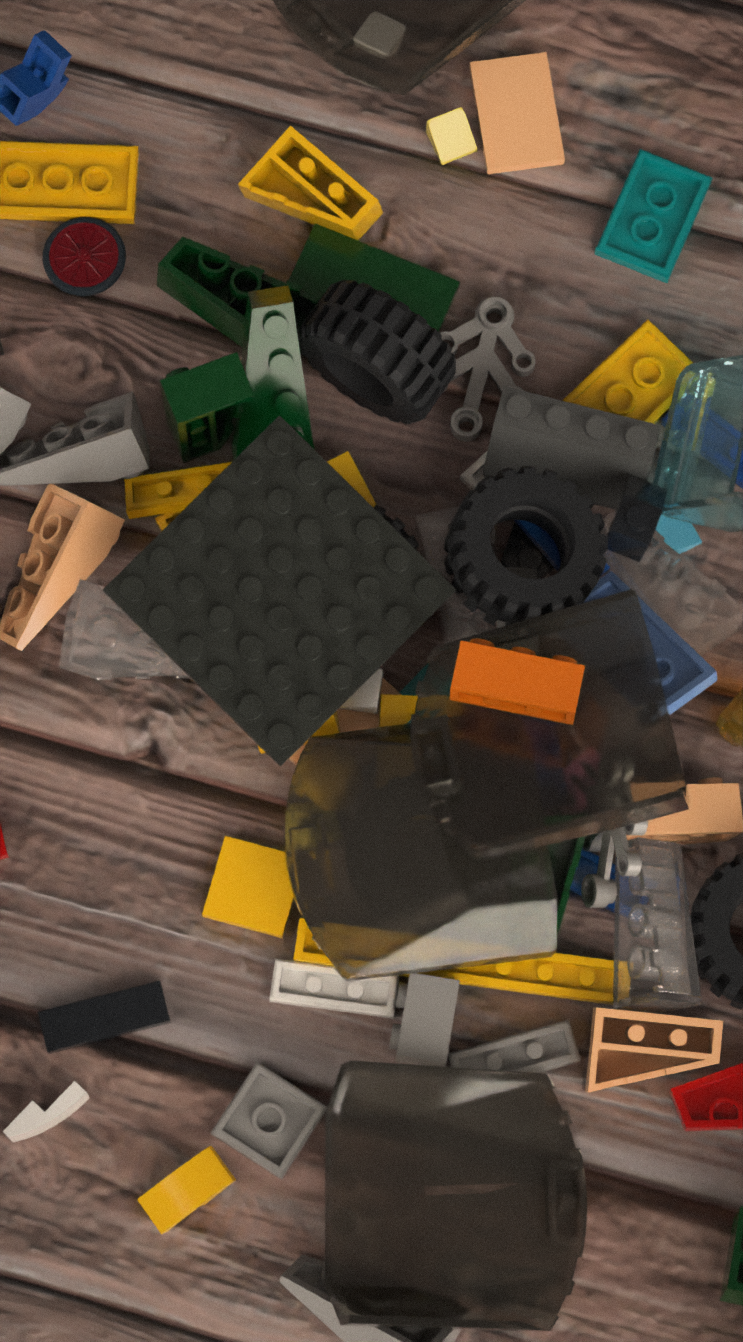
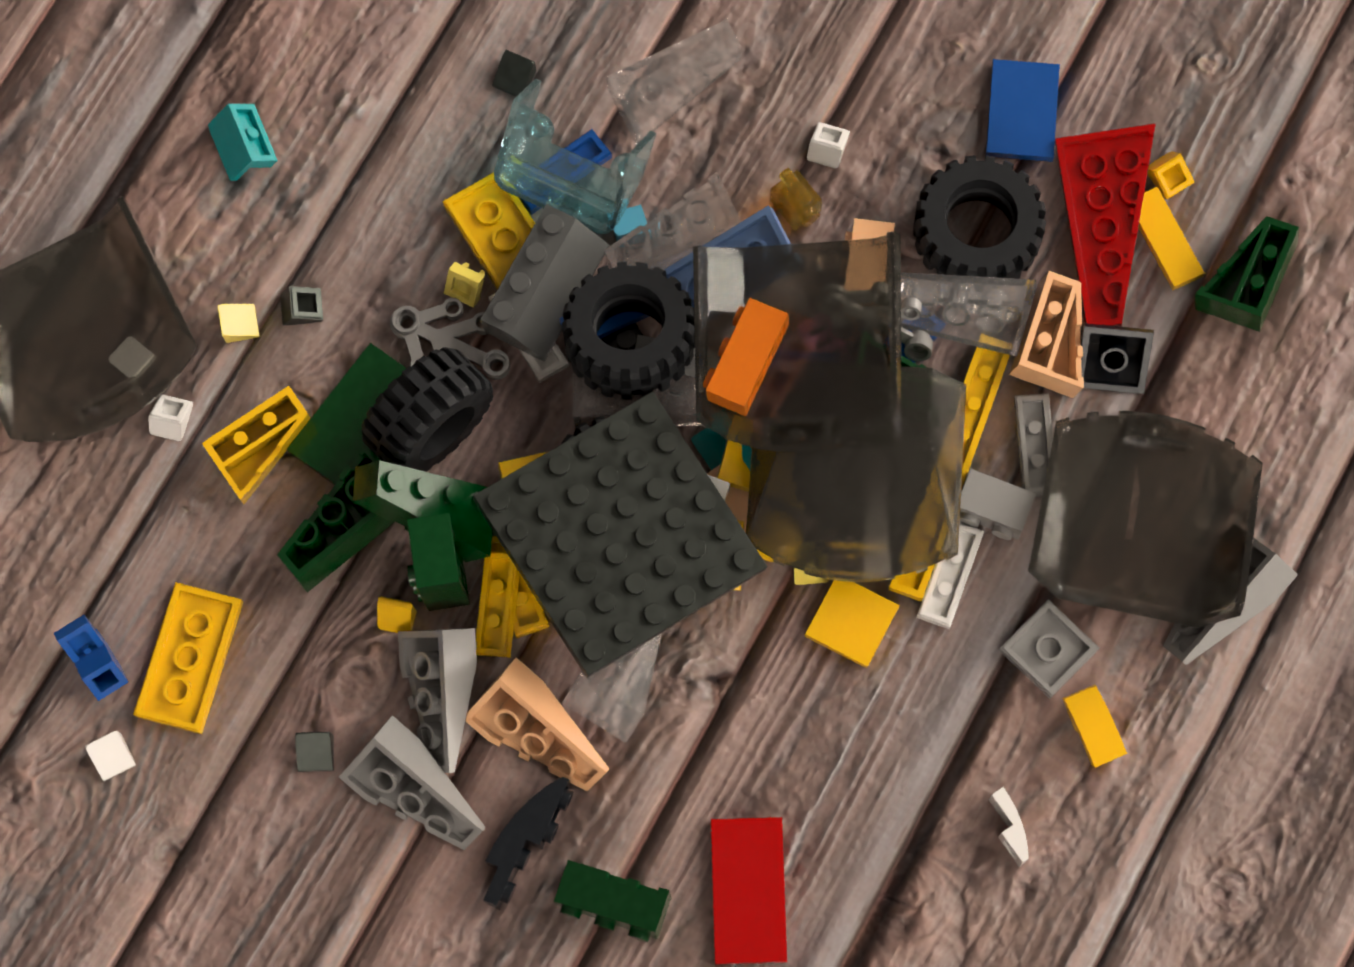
camera: 70 degrees left, 0 degrees up
(84, 256) = (264, 648): dark red wheel -> none
(104, 1017) = (936, 765): black tile -> none
(147, 384) = (395, 615): none -> yellow slope
(325, 94) = (169, 417): none -> white slope
(488, 200) = (301, 305): none -> pearl dark grey slope
(516, 113) = (230, 265): light nougat tile -> none
(553, 366) = (464, 283): none -> light yellow tile
(636, 518) = (621, 238): black slope -> none
(639, 1127) = (1115, 357): none -> black slope
(653, 216) = (351, 178): teal tile -> none
(668, 87) = (241, 140): none -> teal panel

